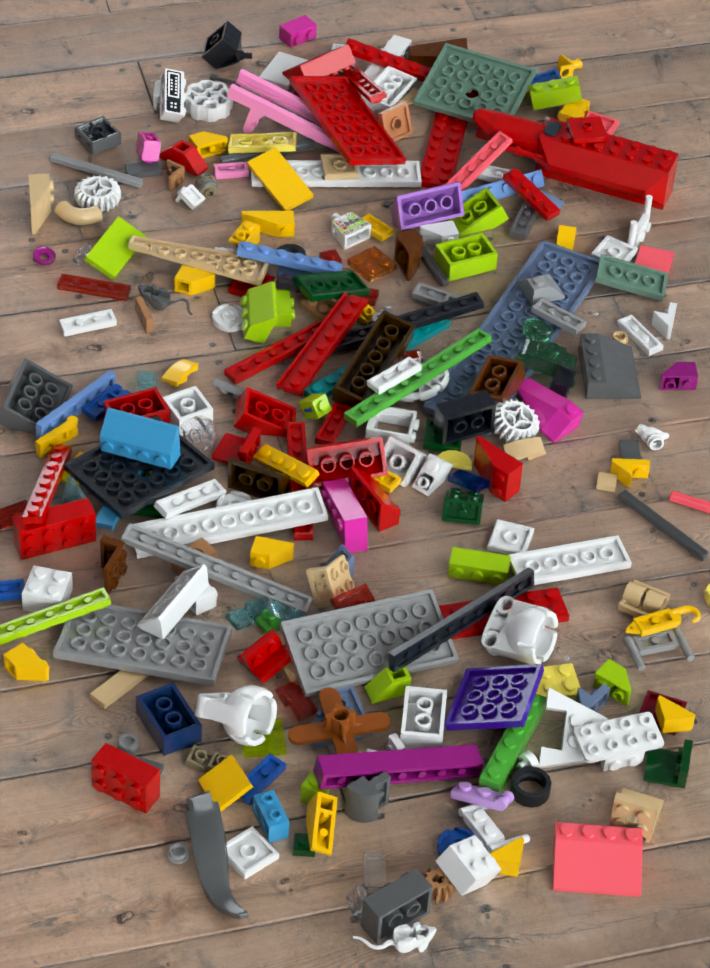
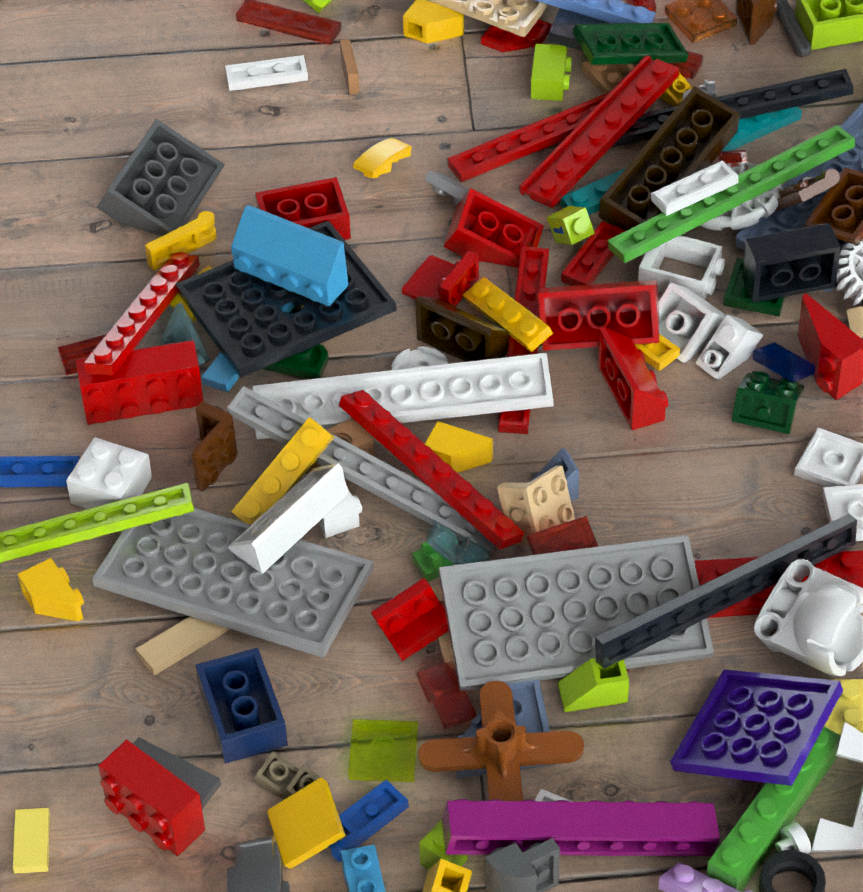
camera: 15 degrees right, 5 degrees up
(50, 813) = (31, 840): none -> light yellow tile
(74, 405) = (220, 192): medium blue plate -> none
(94, 408) = (281, 178): blue plate -> none
(128, 743) = (175, 737): light grey tile -> none
(146, 380) = (331, 165): clear light blue slope -> none
(159, 298) = (375, 44): dark grey animal -> none
(164, 575) = (284, 471): none -> yellow plate
(186, 405) = (379, 217): white brick -> none
(189, 498) = (351, 353): white plate -> none
(200, 432) = (389, 253): clear cylinder -> none
(227, 318) = (474, 81): white tile -> none
(241, 713) = (347, 711): white piece -> none
(246, 616) = (398, 548): clear light blue slope -> none
(259, 312) = (514, 76): lime slope -> none
(259, 565) = (431, 469): none -> red plate
(346, 514) = (582, 400): dark pink wedge -> none
(394, 743) = (585, 787): white plate -> none
(423, 717) = (637, 749): white brick -> none
(431, 295) = (779, 67): light grey plate -> none
(458, 459) = (772, 326): light yellow tile -> none
(465, 370) = (807, 188): none -> reddish brown plate
(478, 566) = (774, 502): lime brick -> none

